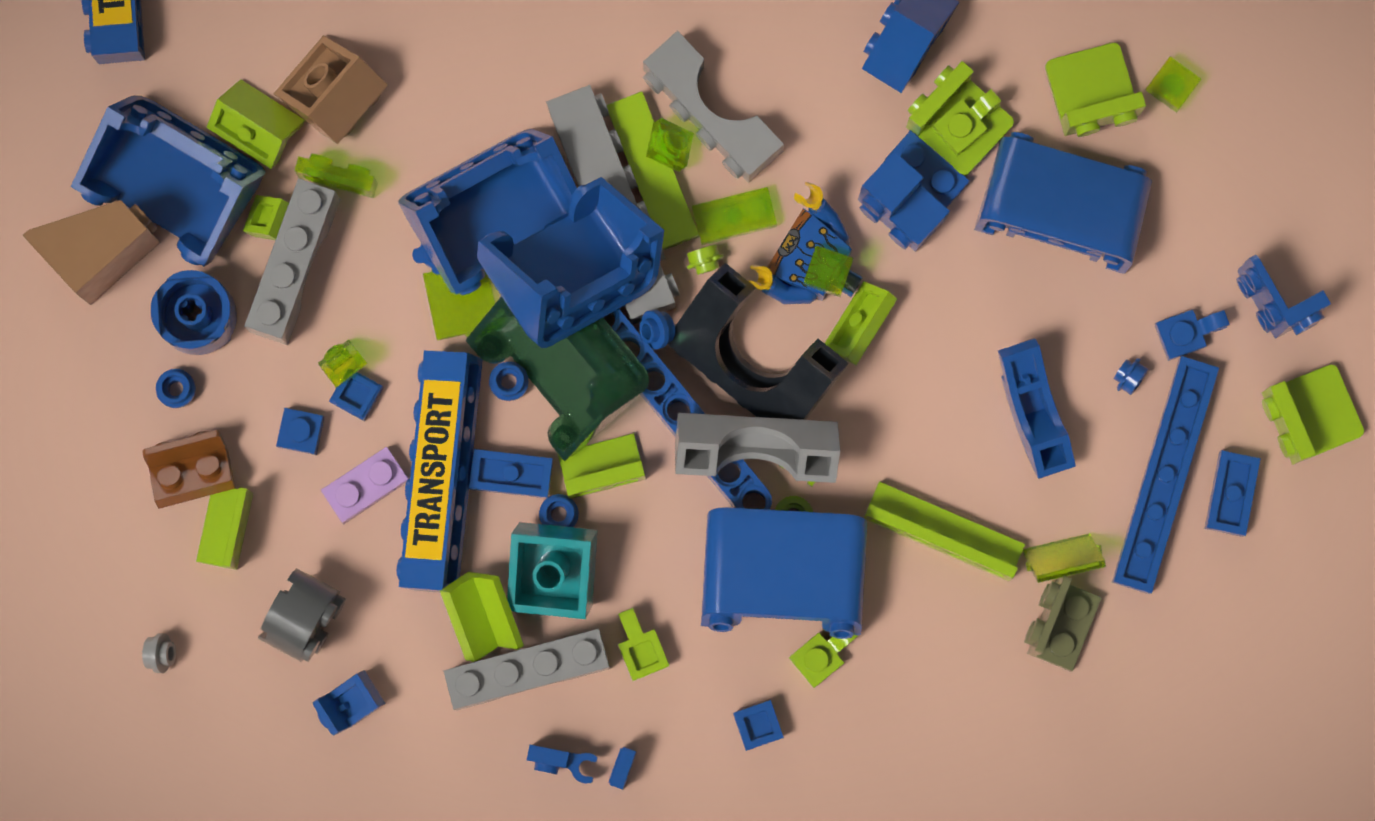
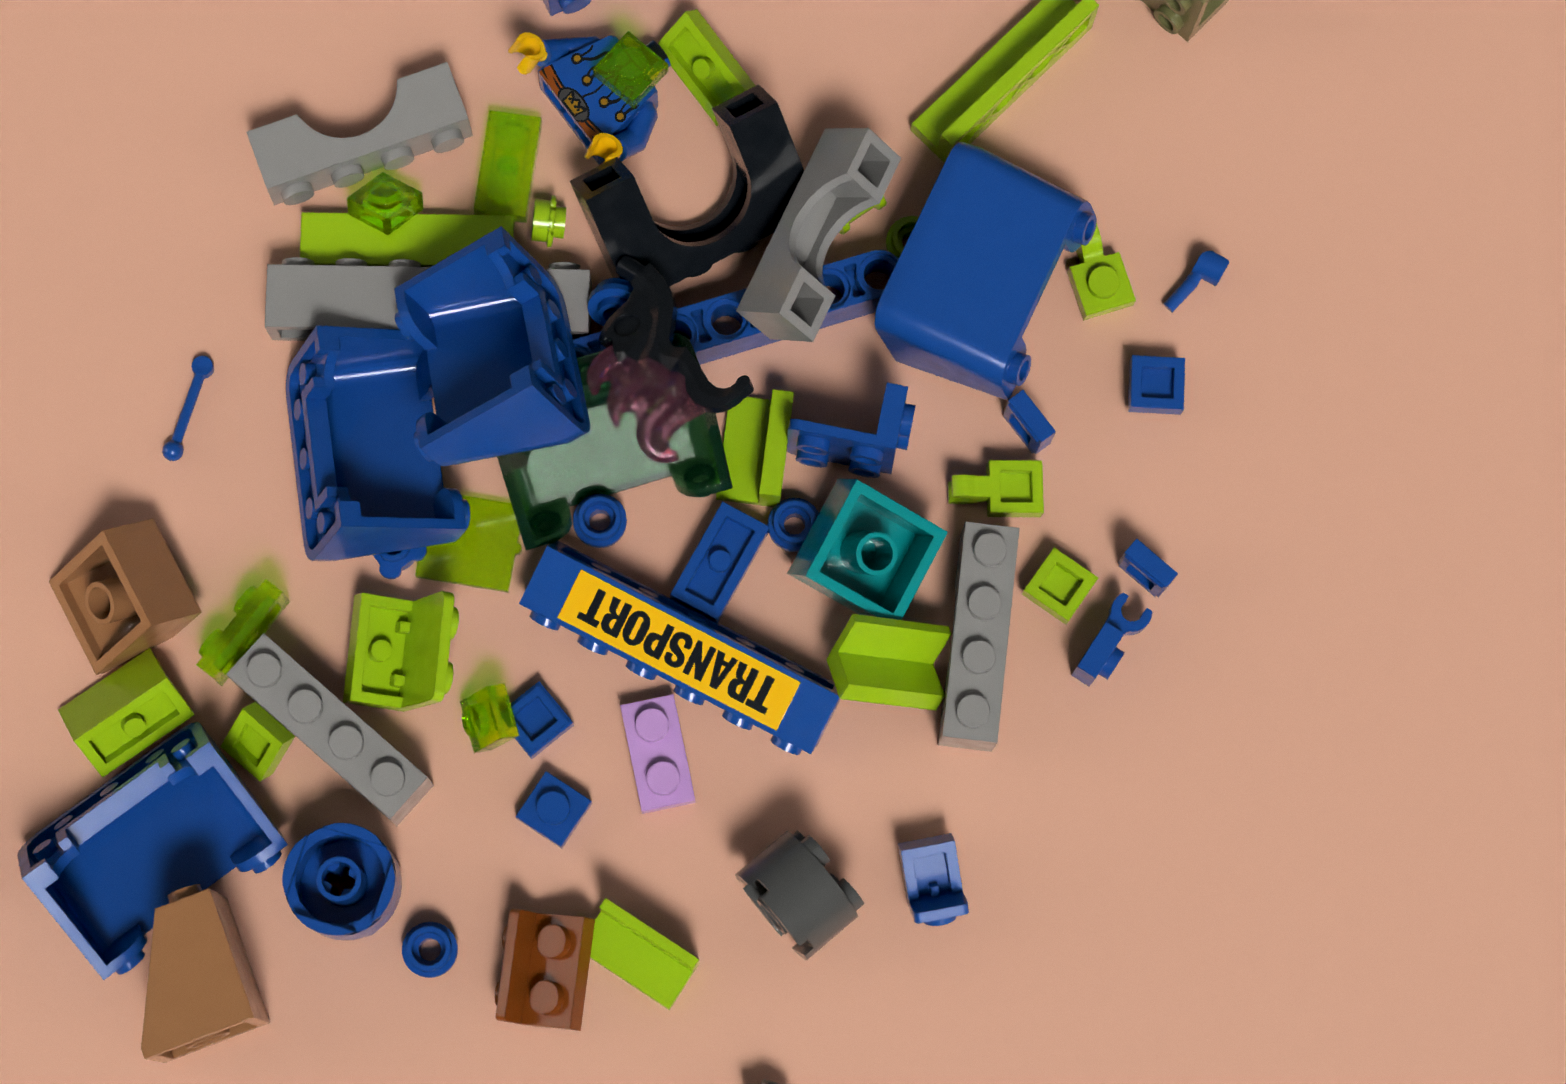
camera: 75 degrees left, 5 degrees down
(362, 284) = (400, 651): none -> lime bracket
(508, 72) = (202, 368): none -> blue hinge
(587, 712) = (1060, 586): none -> lime plate
(603, 372) = (648, 372): none -> piece
(647, 552) = (863, 452): none -> blue bracket
(693, 646) = (1028, 422): none -> blue tile
(860, 730) = (1208, 267): none -> blue hand

